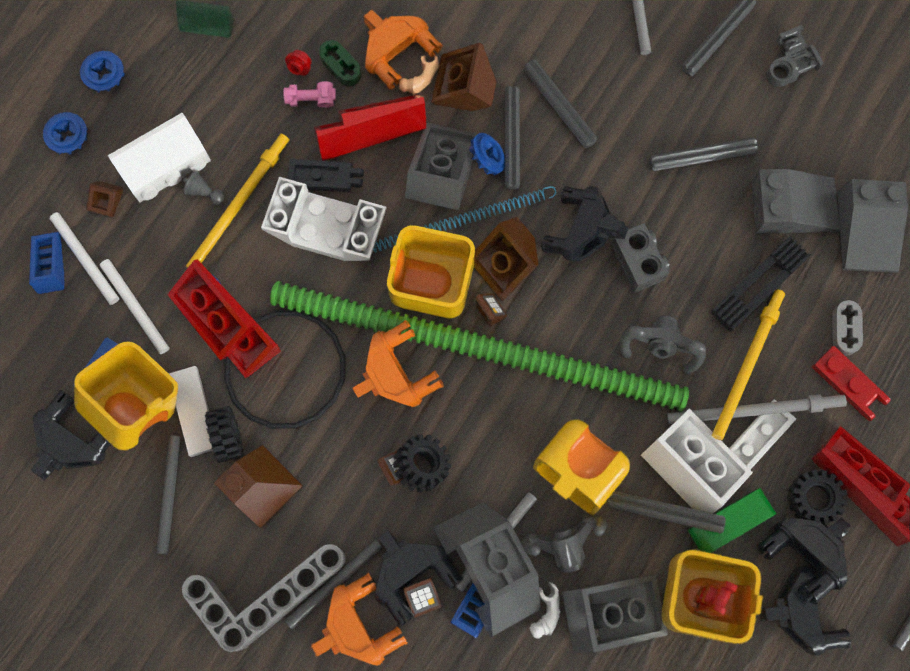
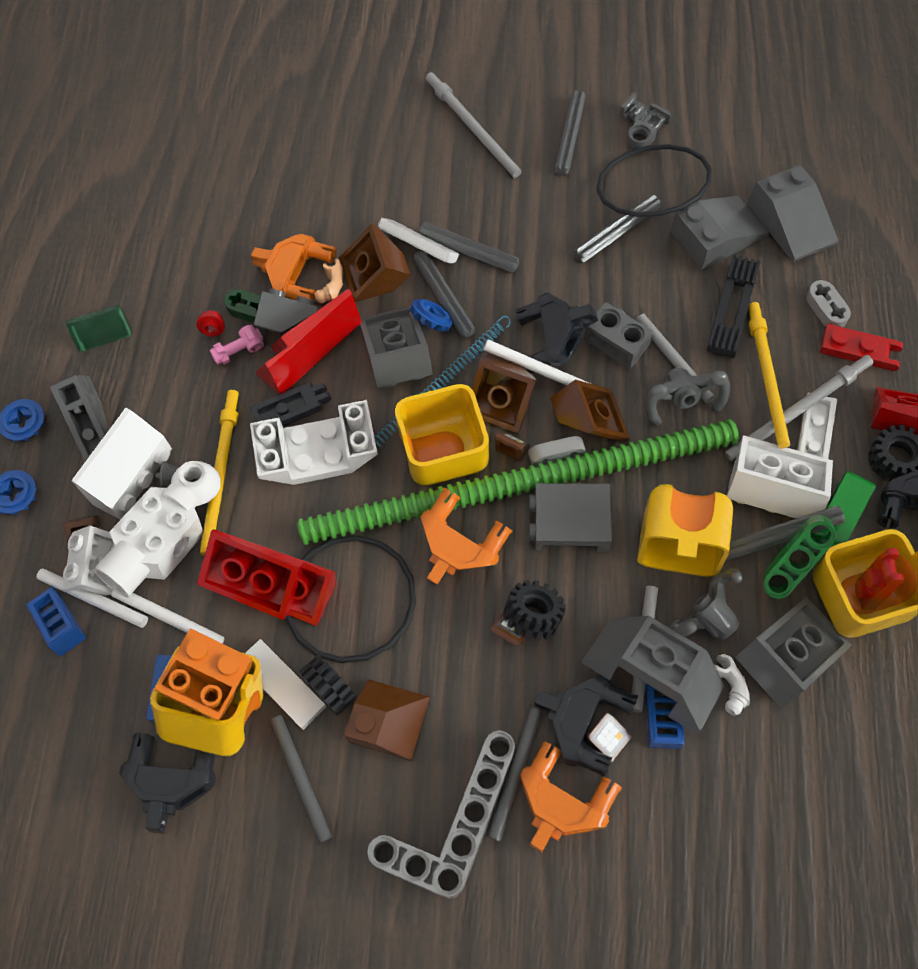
camera: 25 degrees left, 10 degrees down
(97, 228) = (86, 550): none -> white bracket
(124, 381) = (204, 675): none -> orange slope
(152, 93) = (81, 411): none -> dark grey slope
(162, 229) = (158, 529): none -> white brick
(359, 86) = (282, 313): none -> dark grey slope
(500, 399) = (571, 515): none -> dark grey panel
(517, 75) = (418, 240): none -> white tile
(523, 335) = (556, 450): none -> light grey beam
(550, 252) = (529, 363): none -> white bar
(572, 316) = (589, 410): none -> reddish brown slope
(655, 550) = (794, 571): none -> green beam
(677, 296) = (671, 354): none -> light grey bar
(758, 166) = (662, 212): none -> black piece

